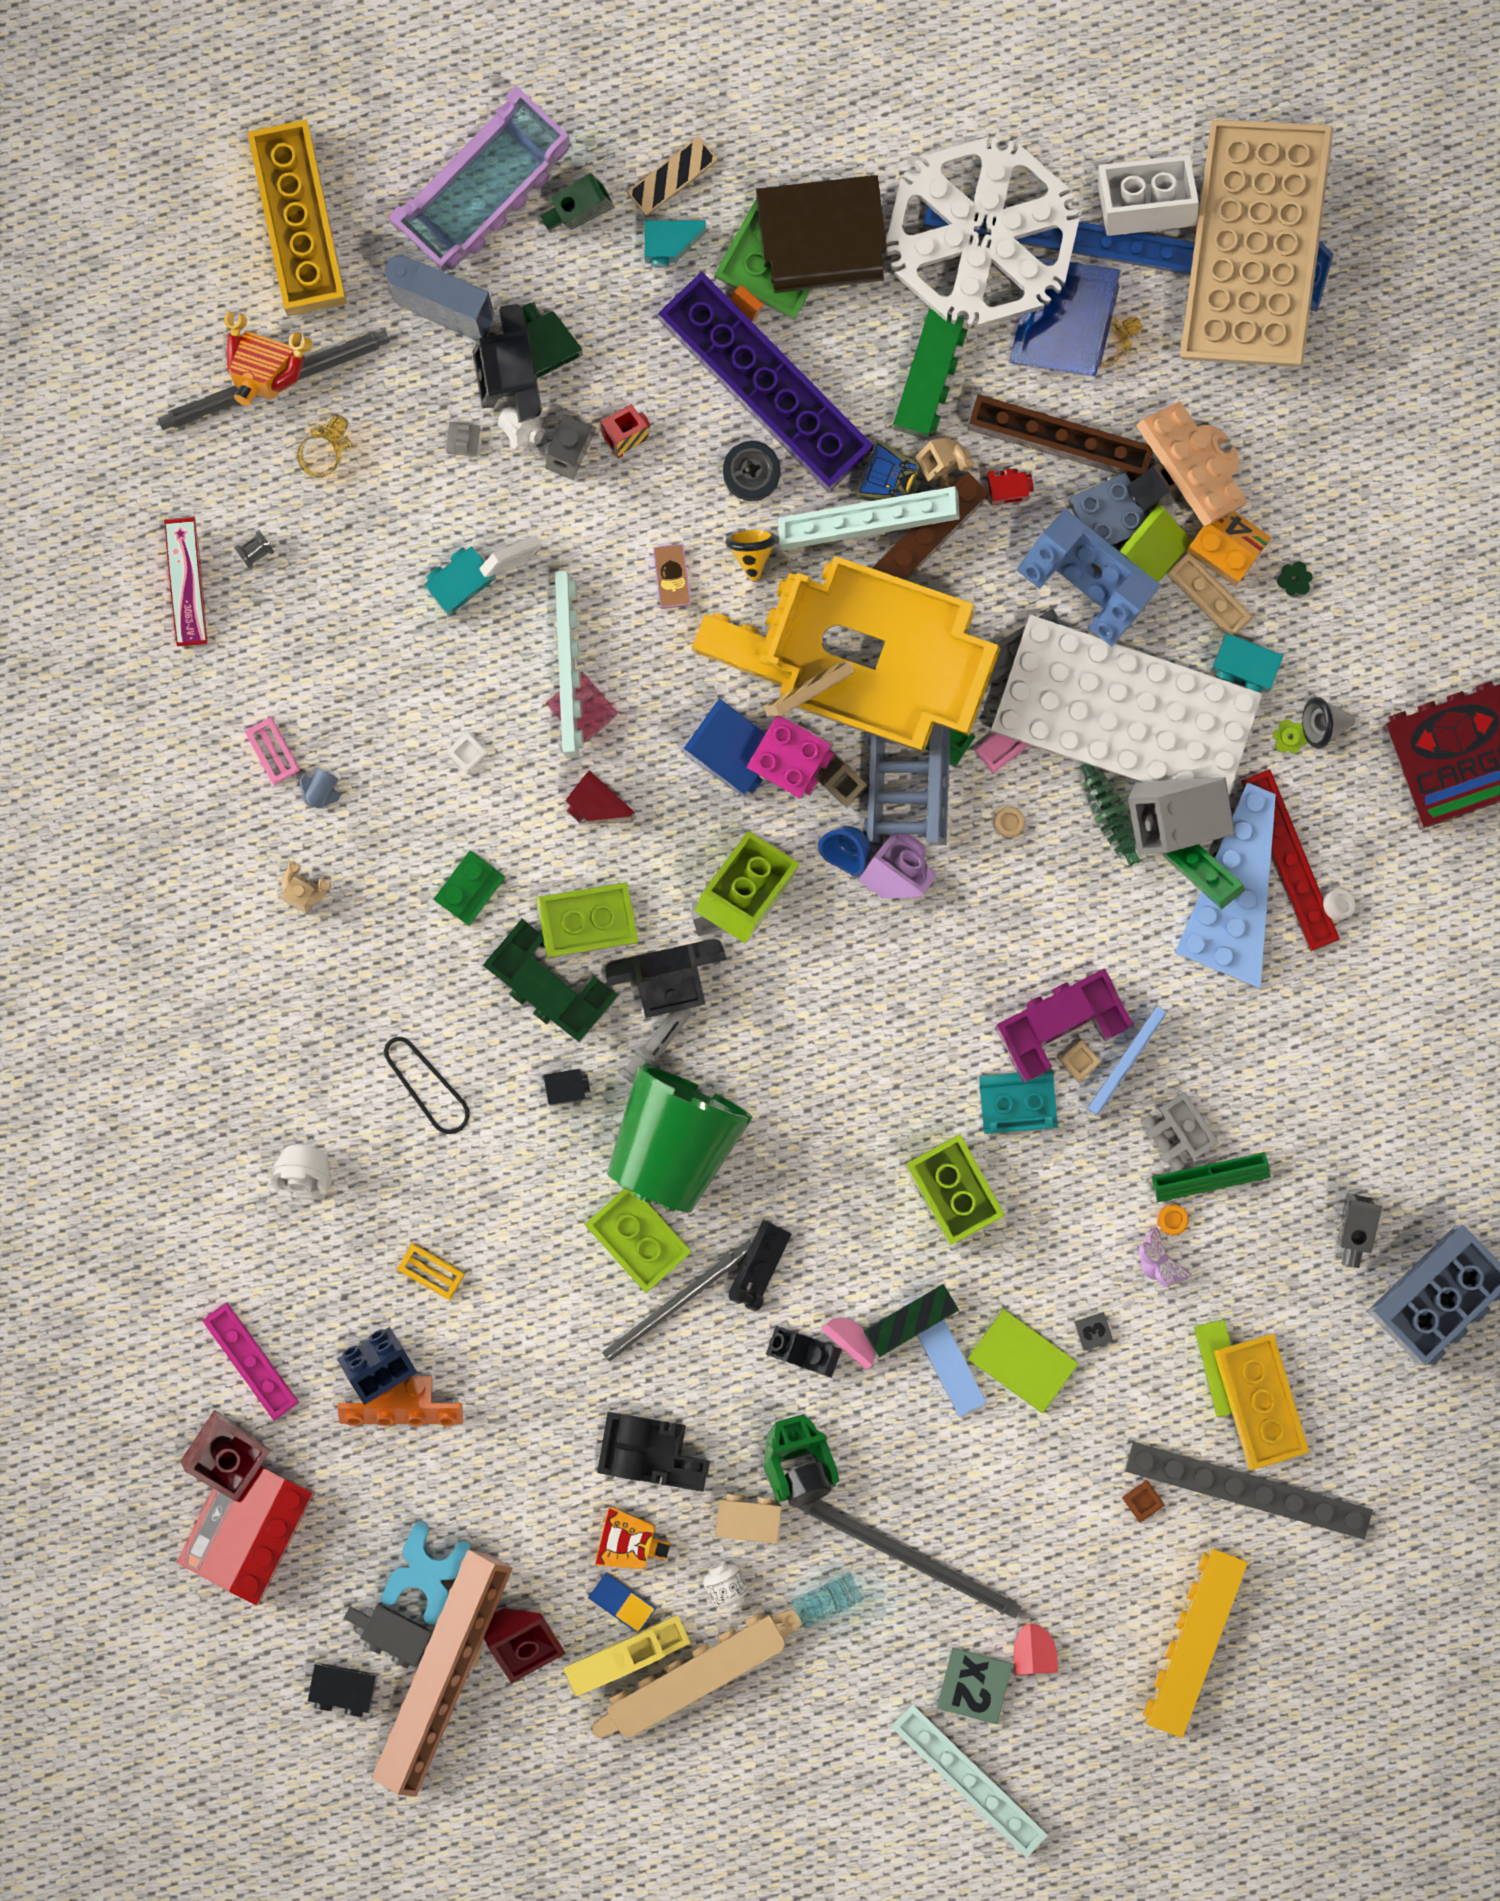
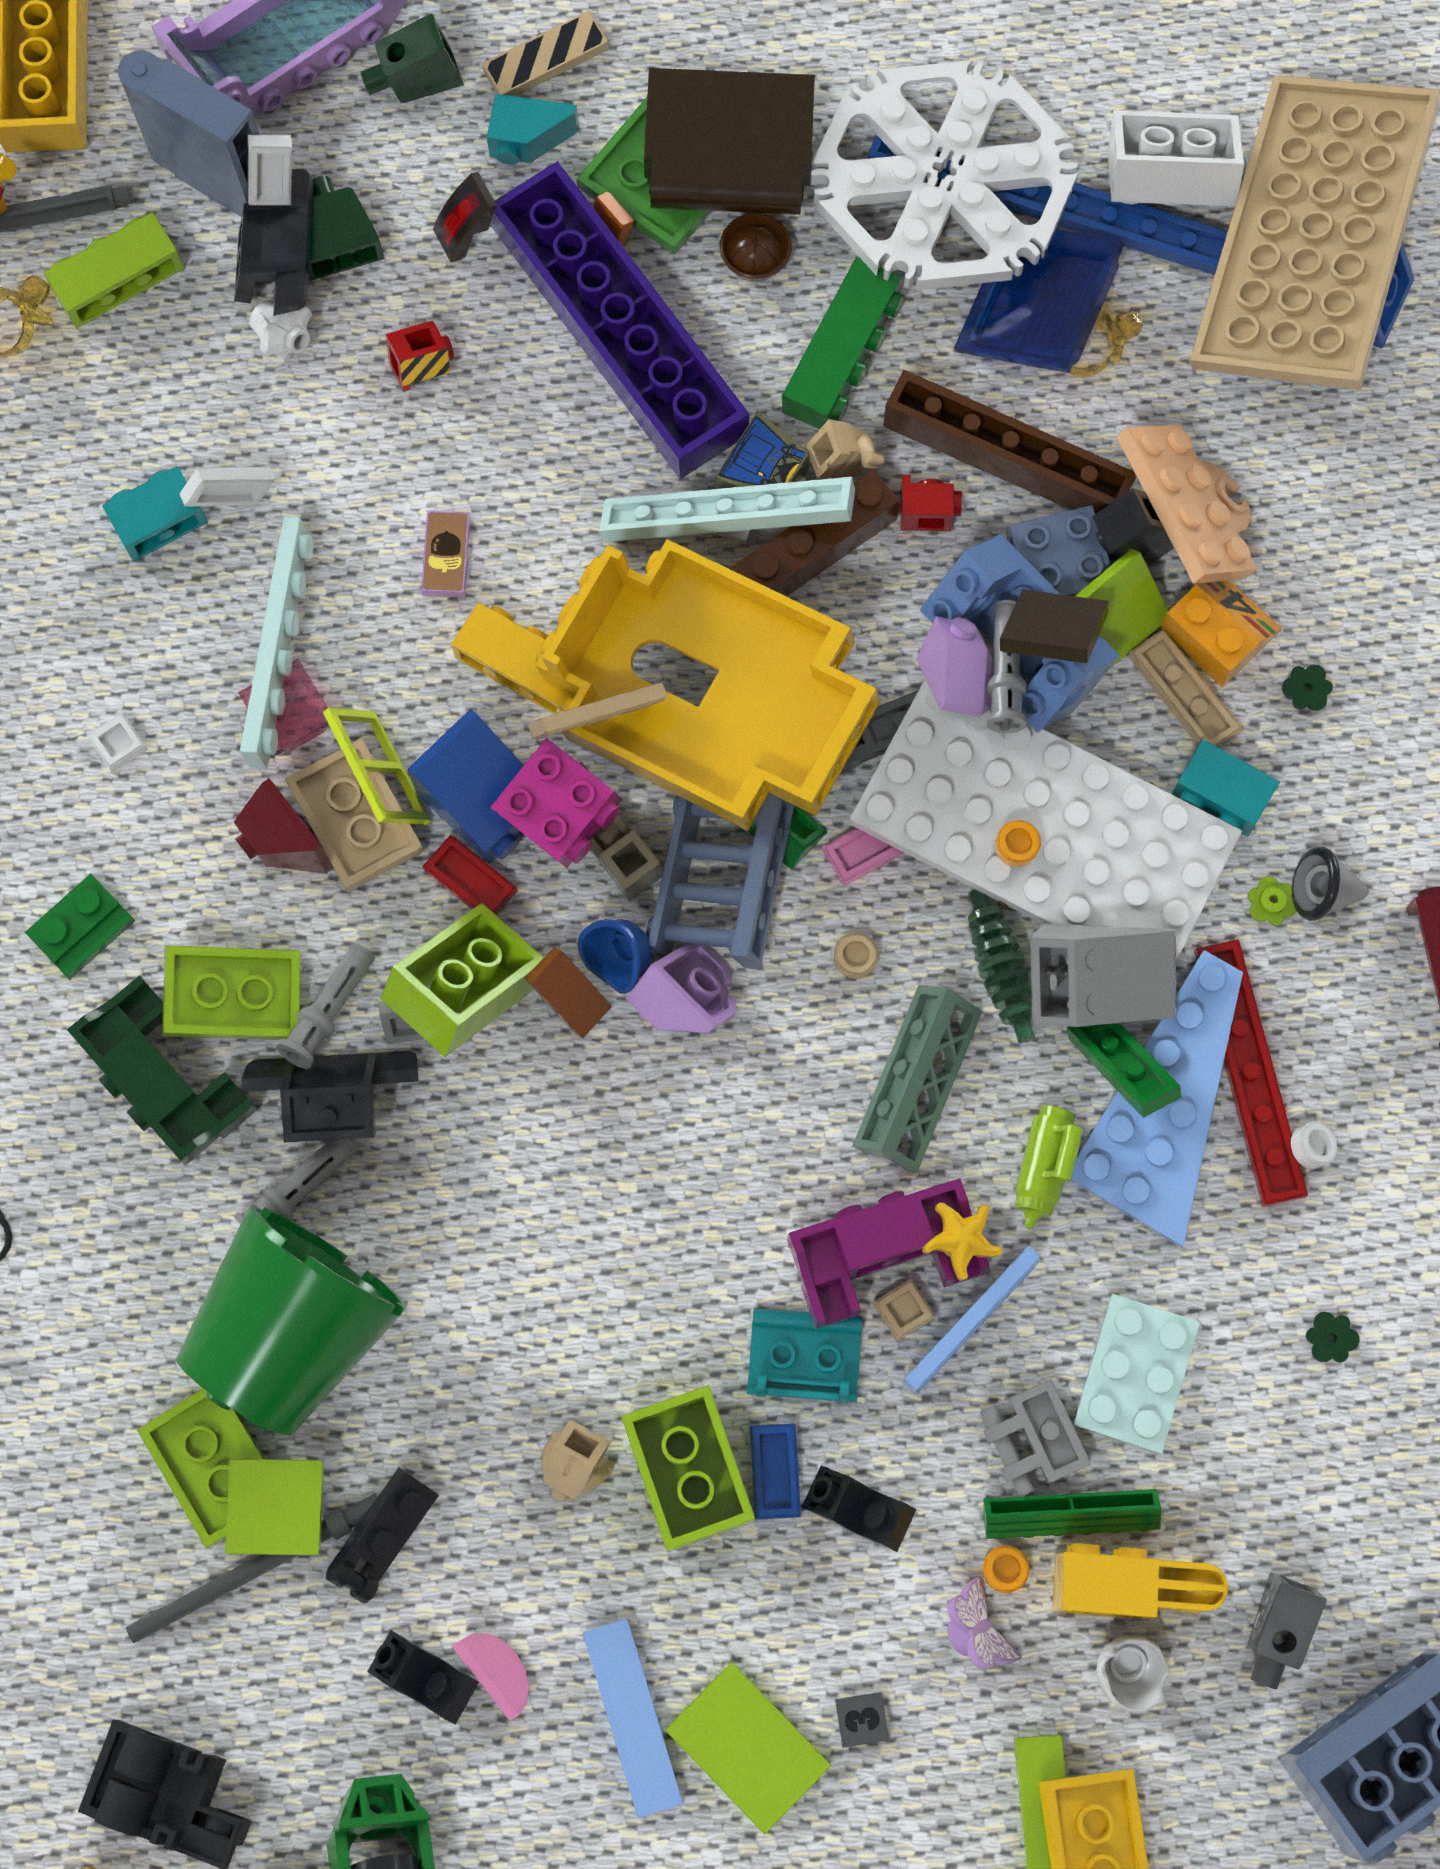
camera: 10 degrees right, 10 degrees down
(389, 398) = (113, 269): none -> lime brick
(463, 439) = (201, 337): light grey tile -> none
(500, 320) = (269, 169): none -> white tile
(566, 1087) = (153, 1225): black brick -> none
(569, 446) = (343, 356): dark grey torso -> none
(640, 321) = (464, 214): none -> slope
(645, 778) = (346, 823): none -> tan plate
(647, 748) = (362, 766): none -> neon yellow window
(650, 929) = (318, 1024): none -> light grey pin
(687, 1259) = (274, 1507): none -> lime tile
(732, 810) = (469, 876): none -> red tile
(741, 483) = (600, 440): wheel -> none
(752, 550) = (560, 536): hat -> none
(818, 882) = (568, 992): none -> dark orange tile
(853, 307) = (755, 246): none -> reddish brown hat
(878, 1197) = (575, 1461): none -> tan piece
(911, 1320) = (590, 1656): tile -> none
(1011, 1181) = (775, 1471): none -> blue tile
(1052, 611) = (957, 666): none -> lavender slope
(1060, 898) = (912, 1071): none -> sand green fence
(1070, 1196) = (859, 1508): none -> black slope
(1086, 621) = (1006, 685): none -> light grey pin
(1109, 730) = (1017, 843): none -> light orange tile
(1112, 1009) = (962, 1238): none -> yellow animal
(1113, 577) = (1054, 626): none -> dark brown tile
(1161, 946) = (1047, 1162): none -> lime piece
(1240, 1077) = (1136, 1374): none -> light aqua plate
(1256, 1216) = (1132, 1584): none -> yellow brick
(1264, 1272) = (1132, 1673): none -> white hair
(1363, 1041) = (1345, 1338): none -> dark green plant

